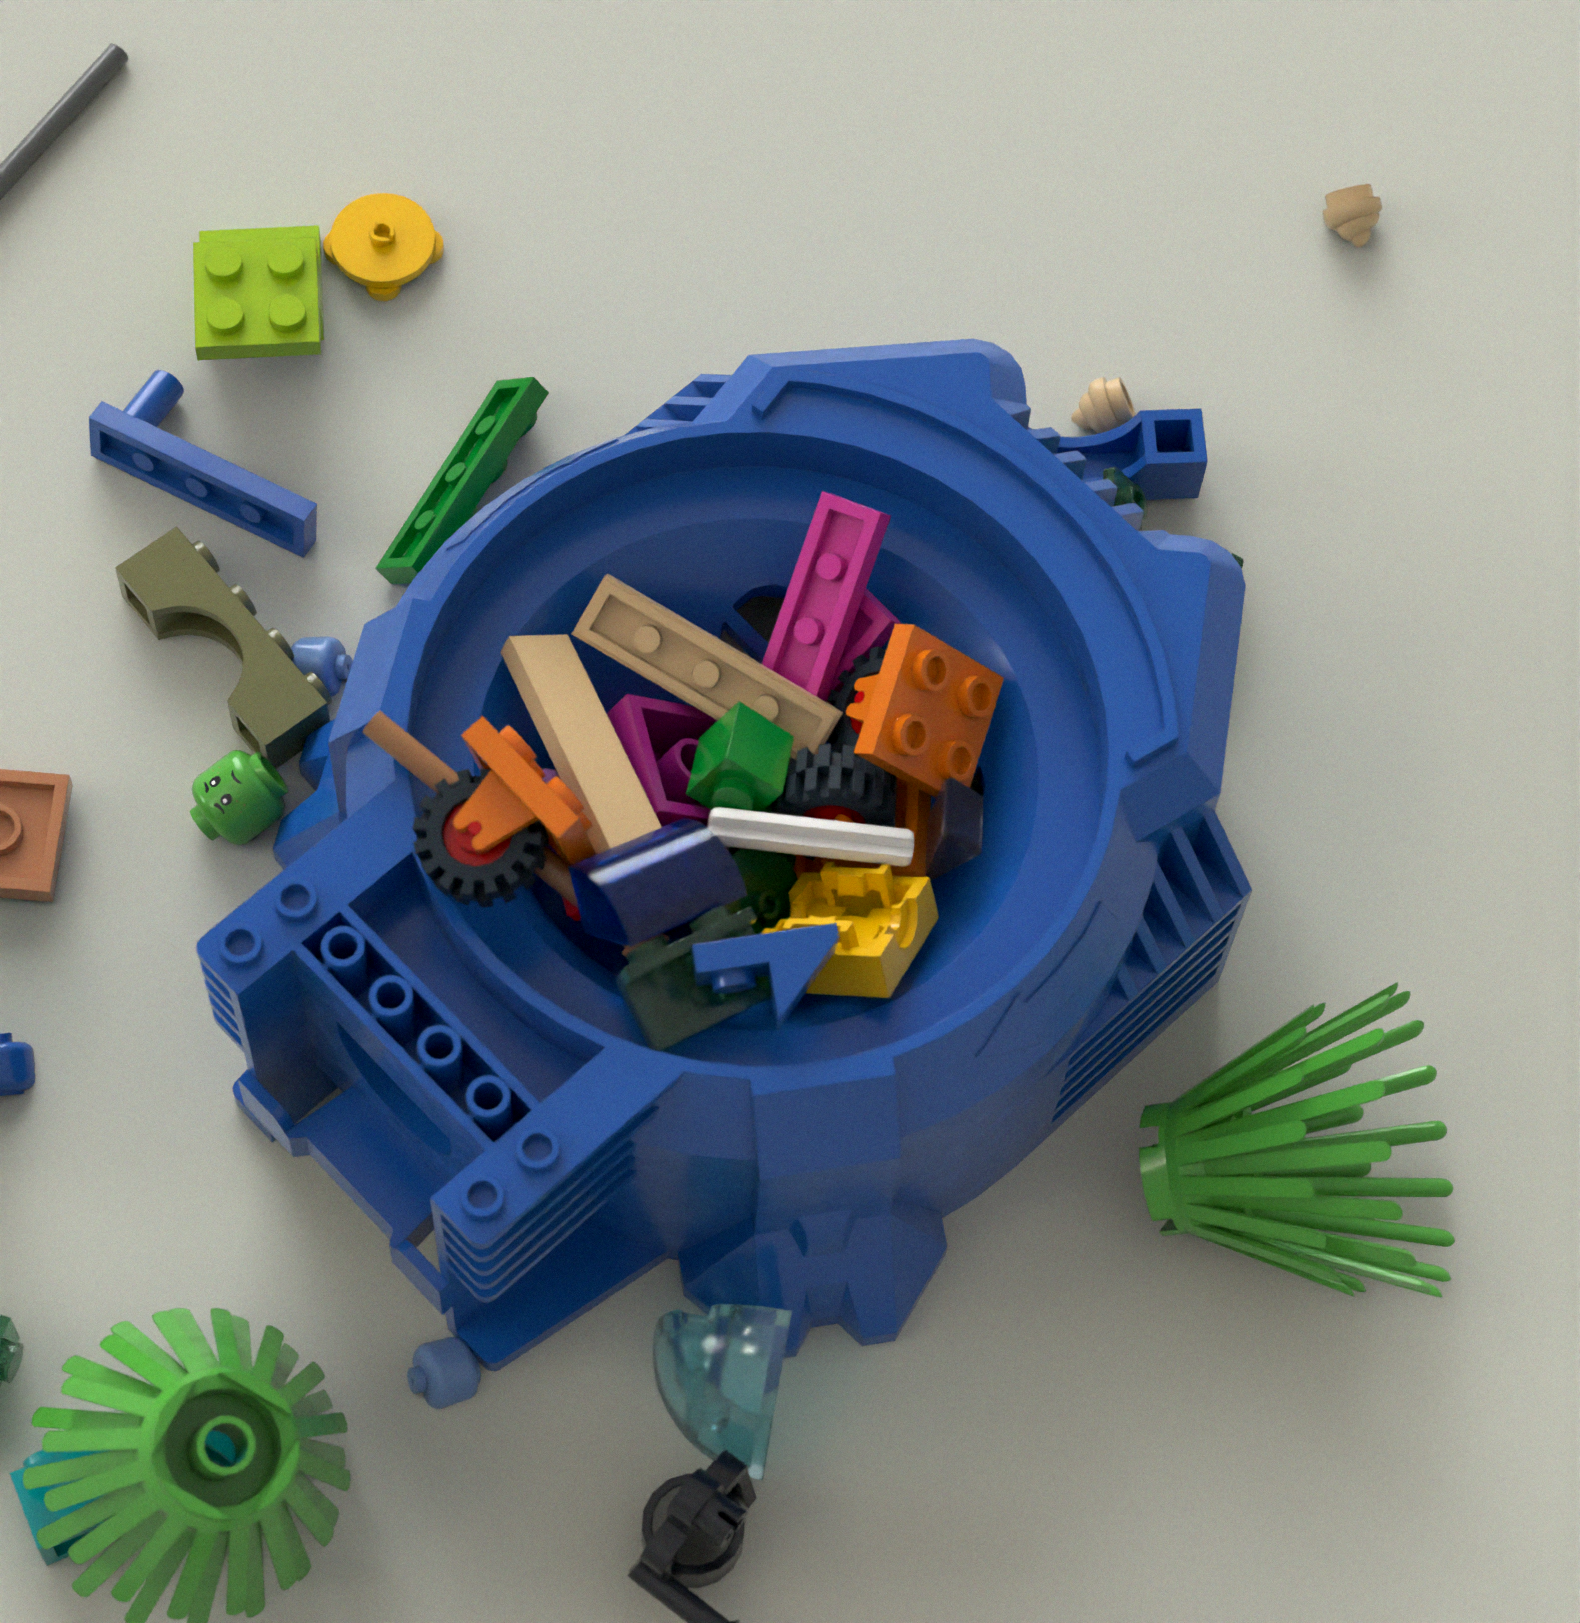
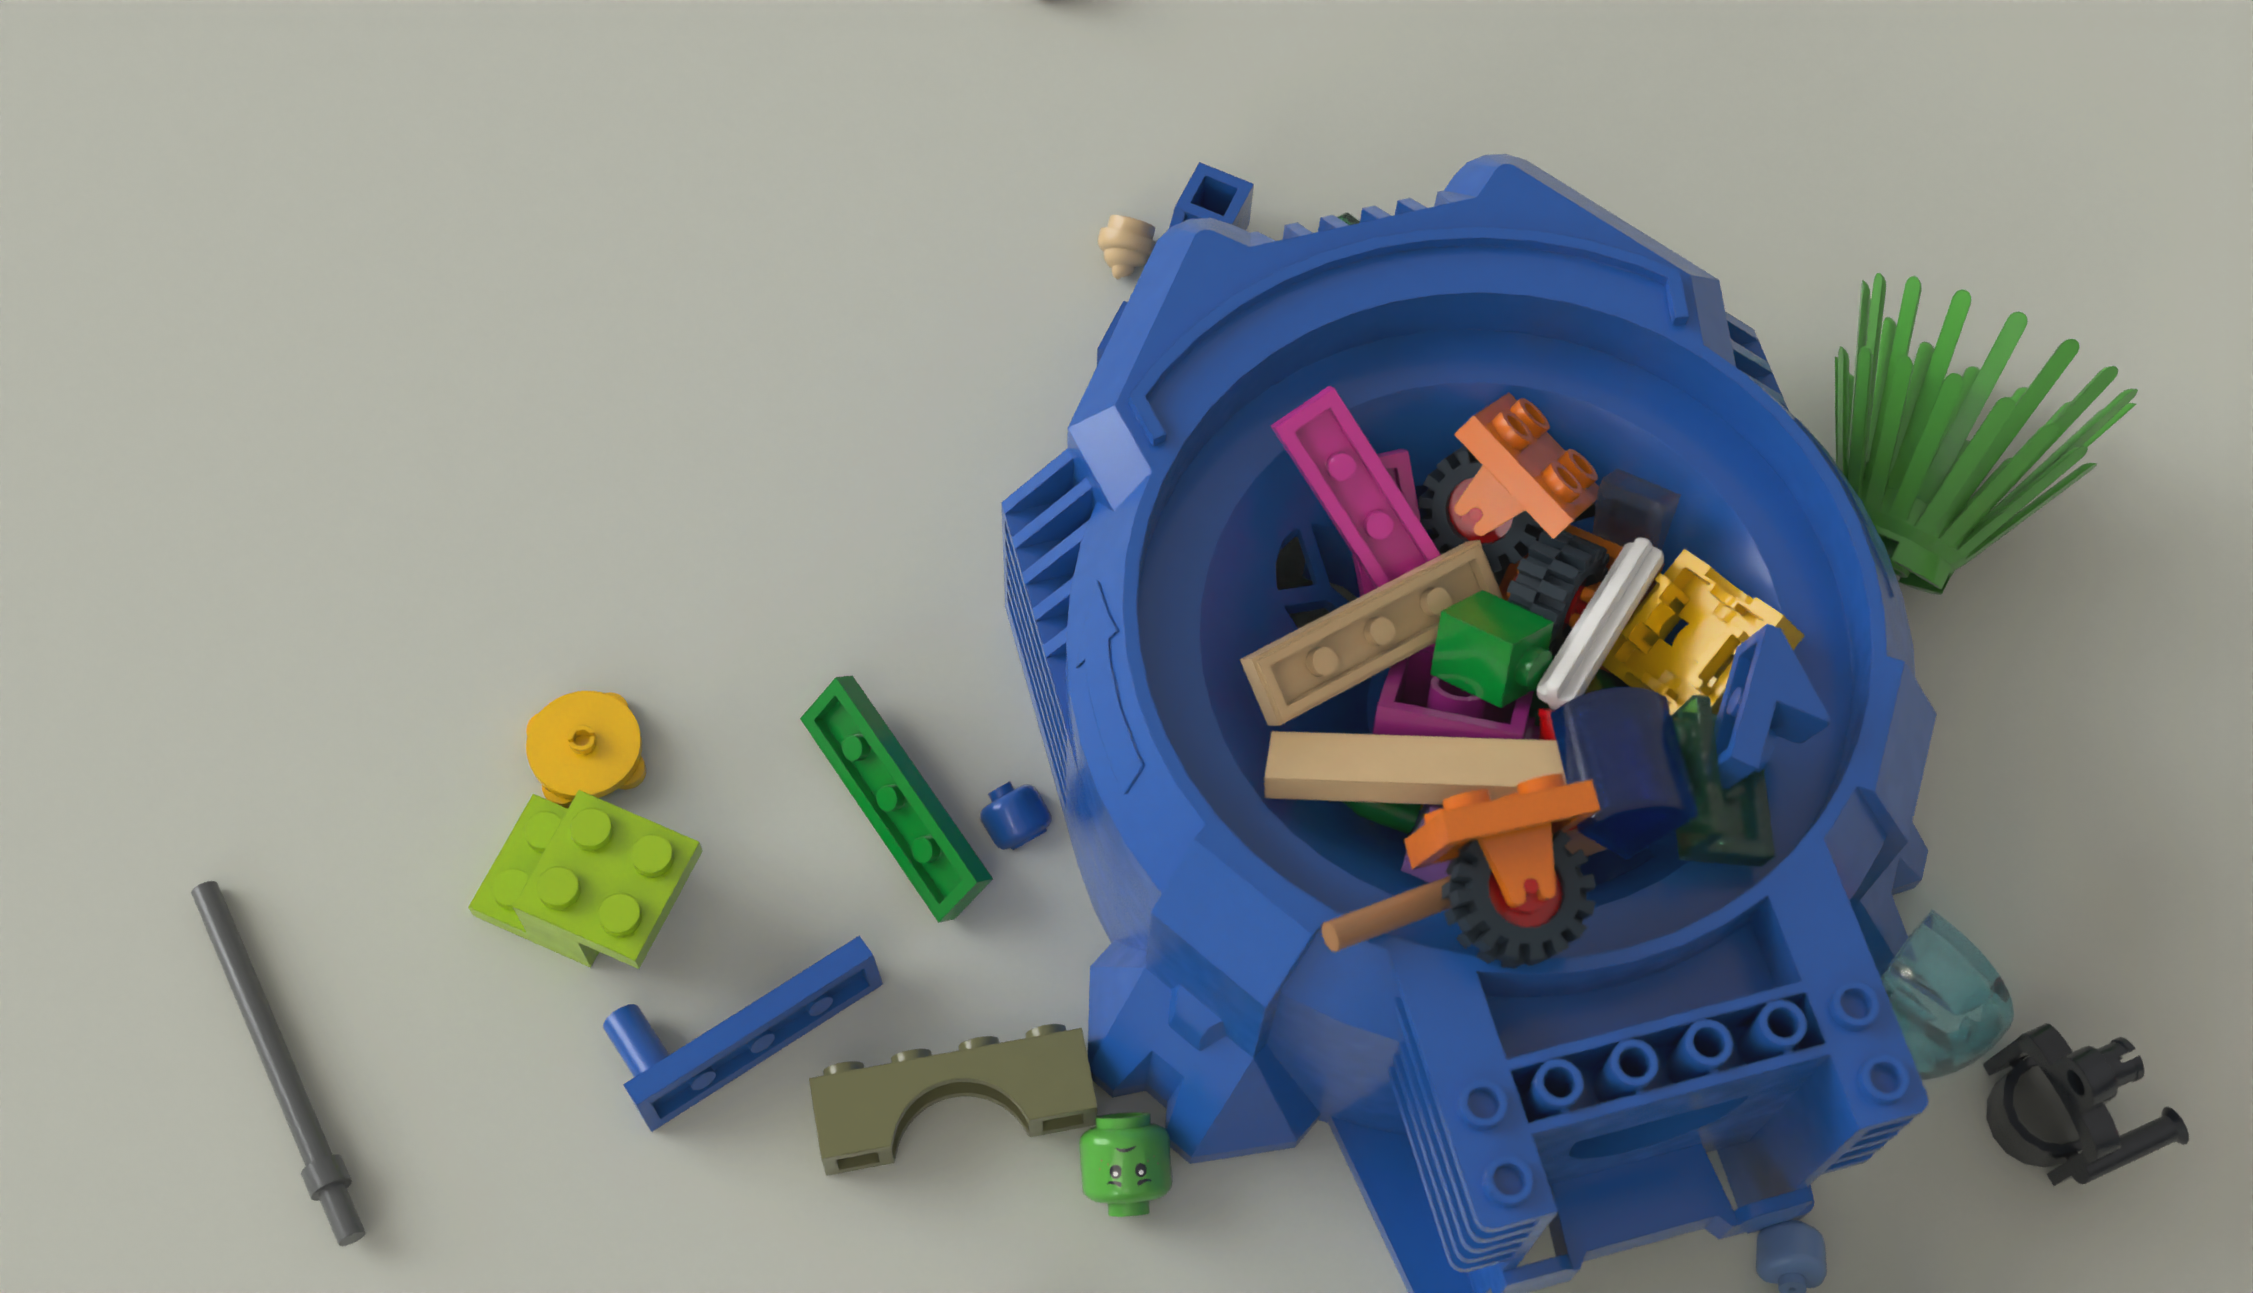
camera: 60 degrees left, 0 degrees up
(325, 658) = (1006, 1017): medium blue piece -> none

